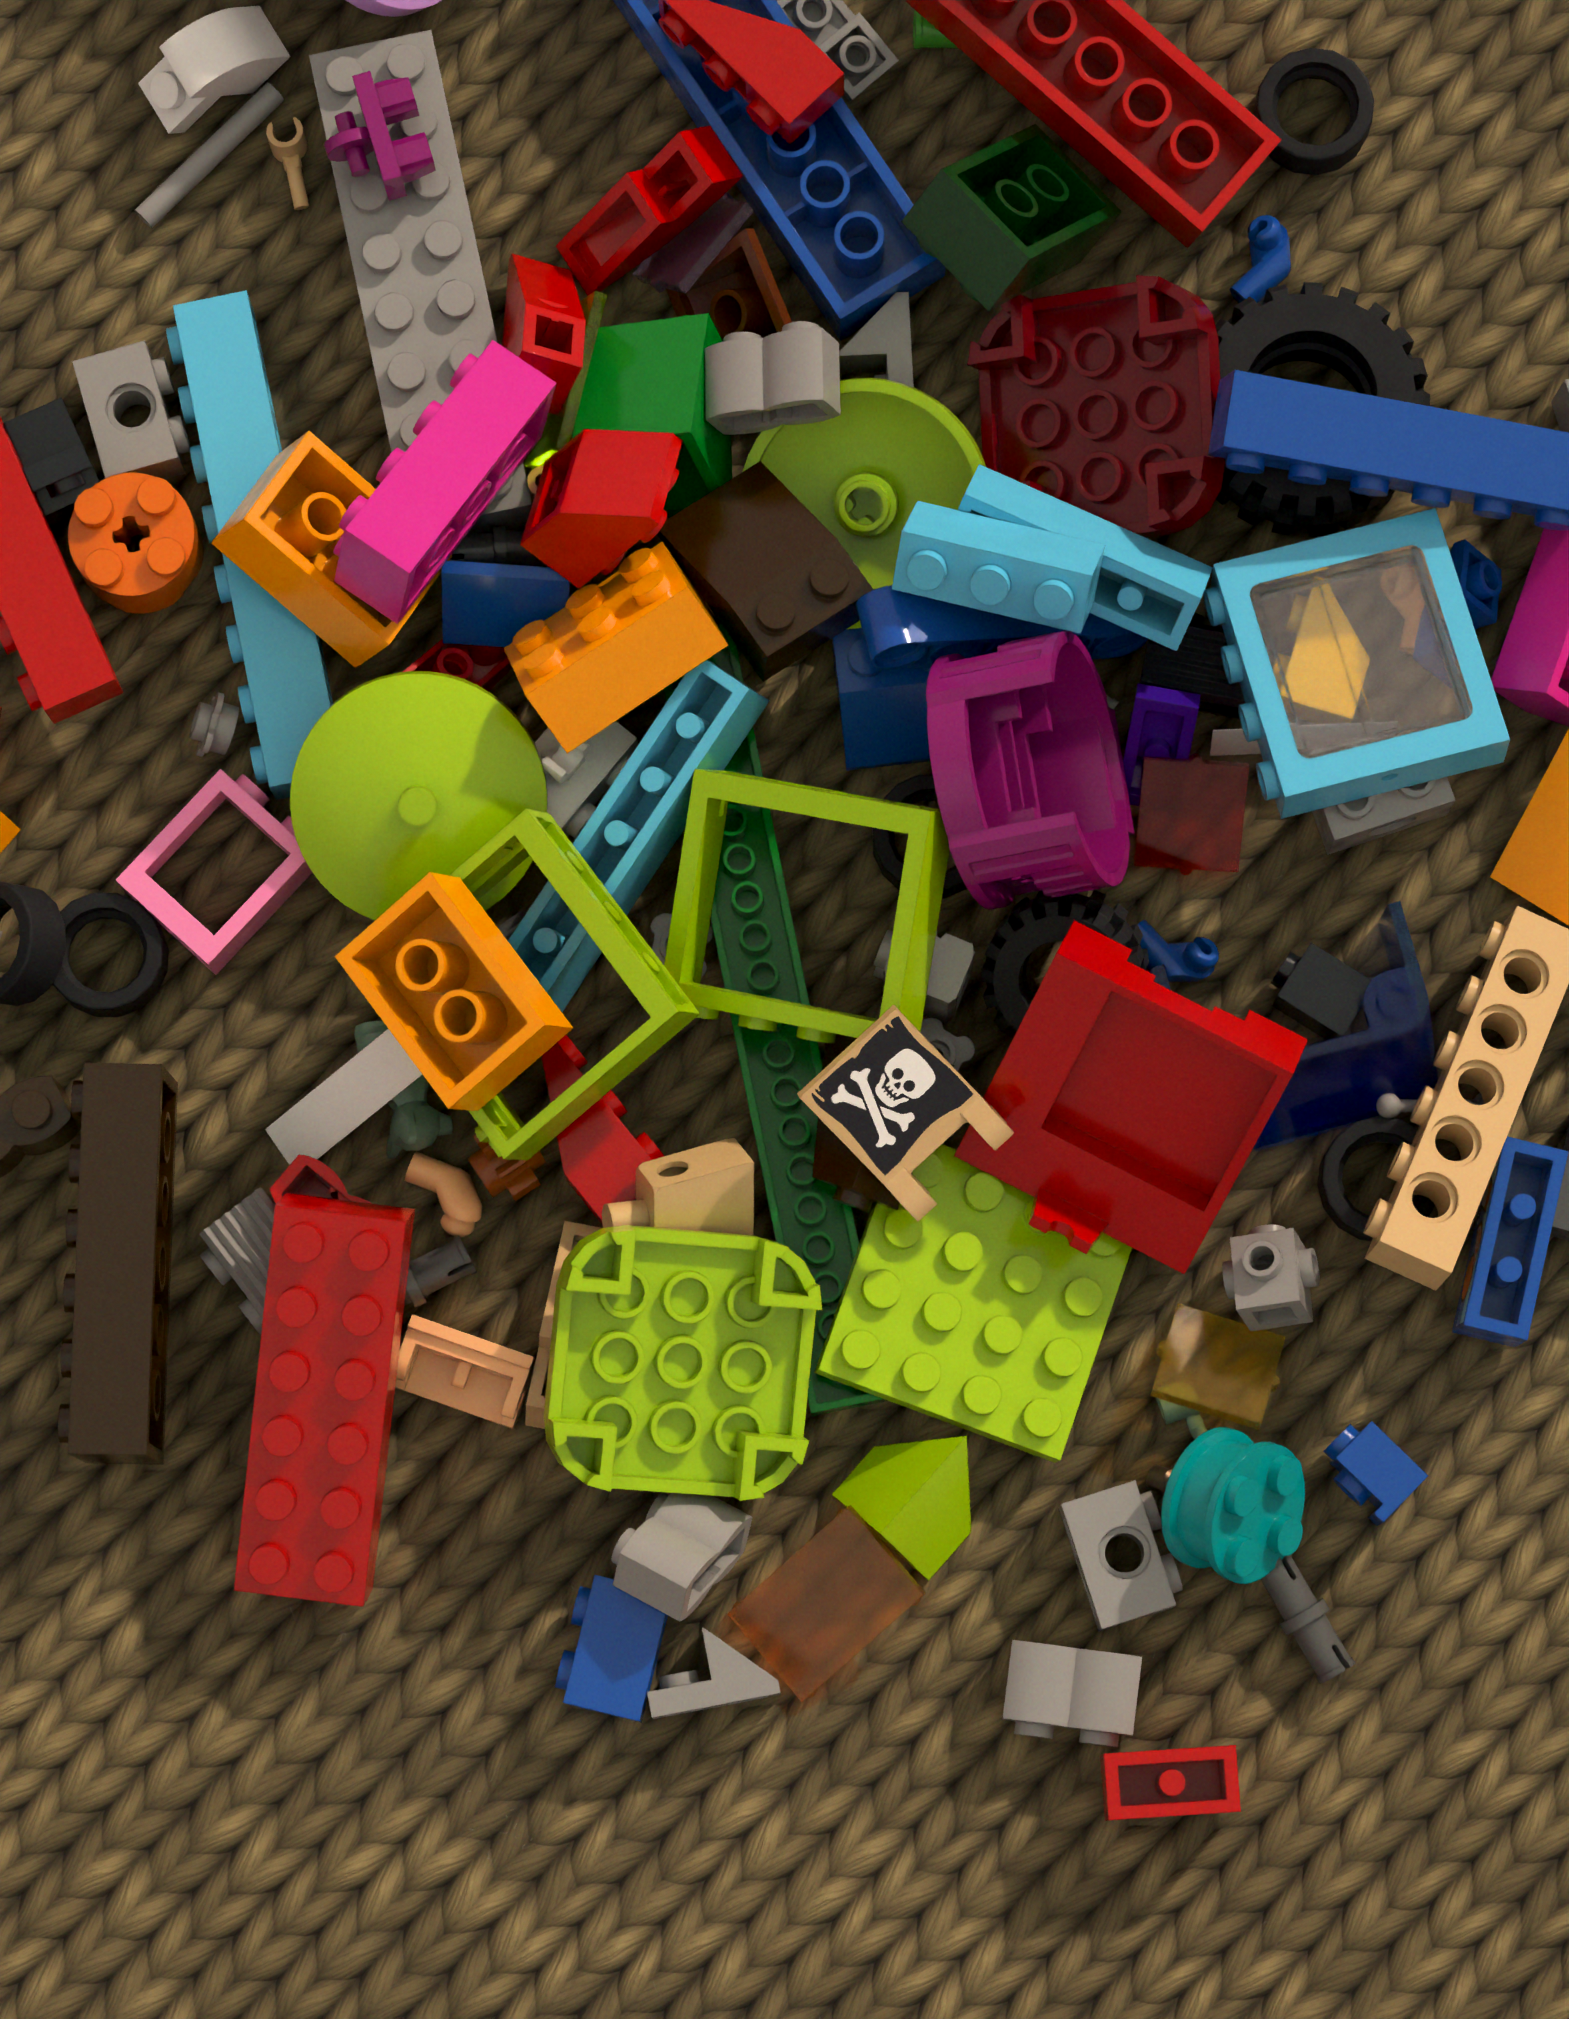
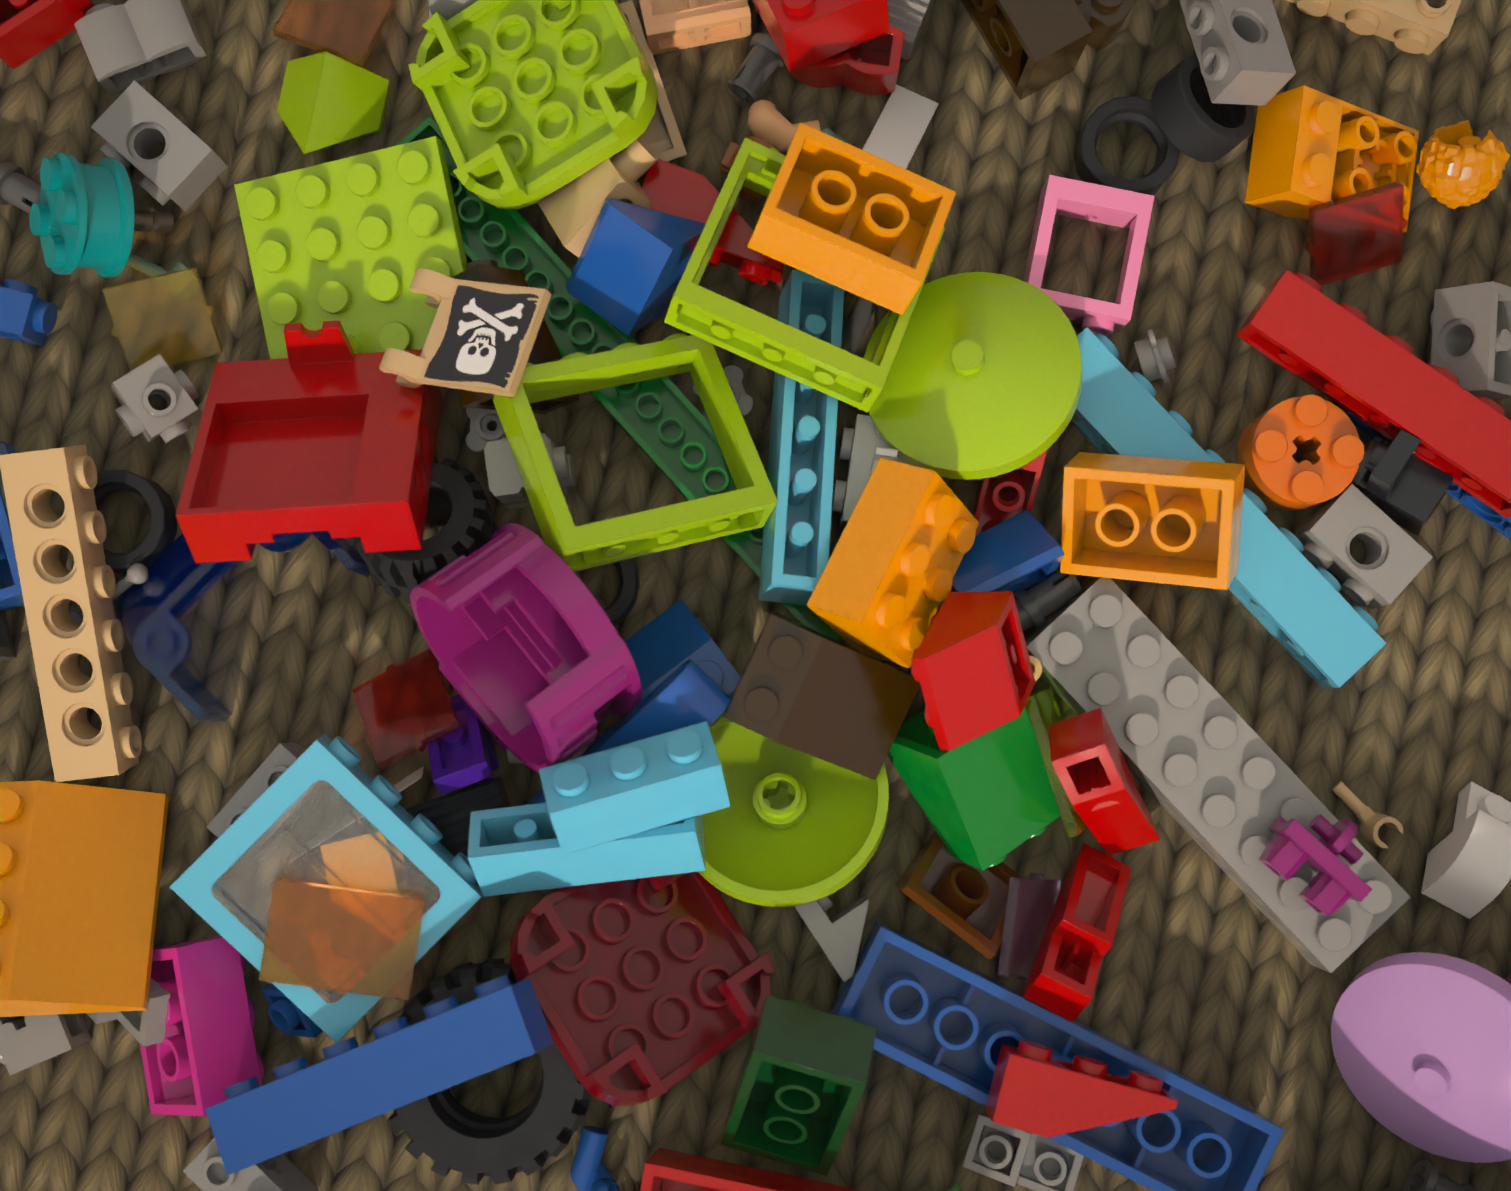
camera: 145 degrees right, 5 degrees up
(209, 155) = (1430, 784): light grey bar -> none
(442, 480) = (1102, 604): dark pink brick -> none
(694, 1112) = (633, 263): none -> blue slope
(772, 379) = (901, 844): light grey brick -> none
(1181, 960) = (358, 597): blue arm -> none
(1319, 992) = (236, 631): black brick -> none
(1370, 598) = (341, 939): none -> clear orange piece

